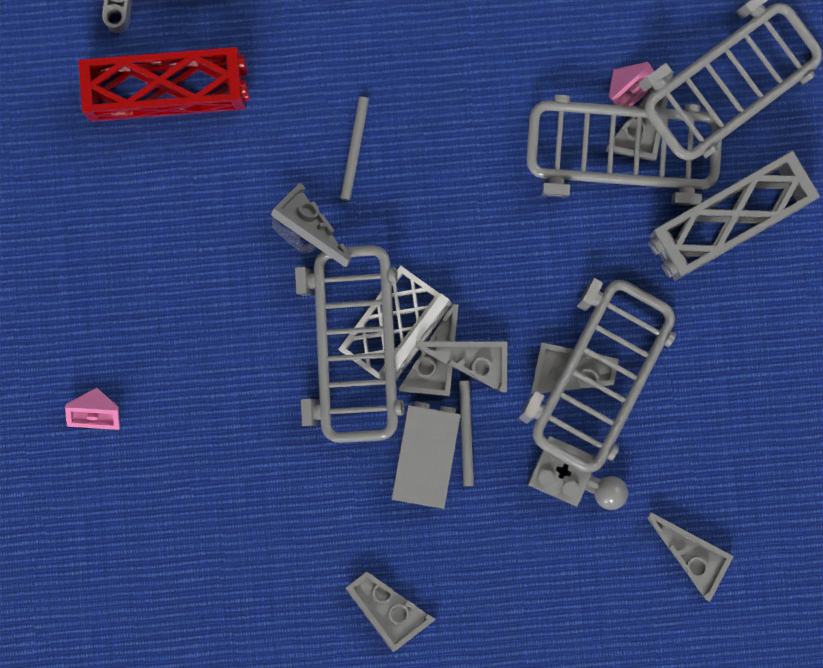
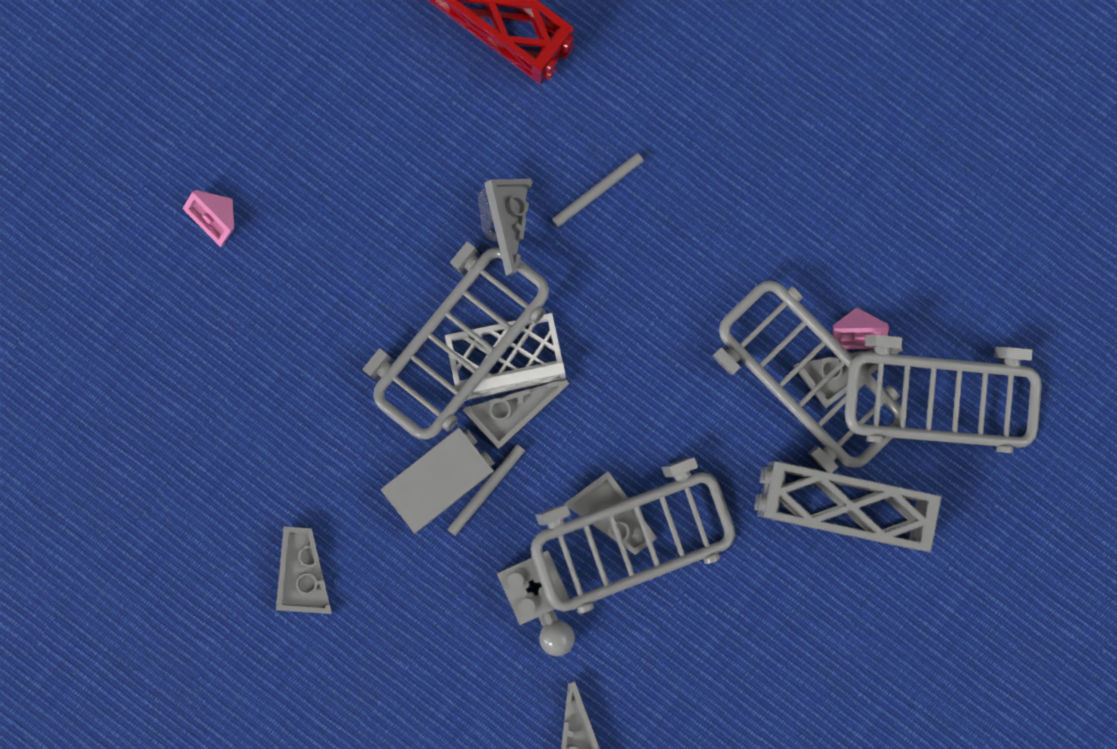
camera: 30 degrees right, 0 degrees up
(479, 359) = (546, 440): light grey wing -> none

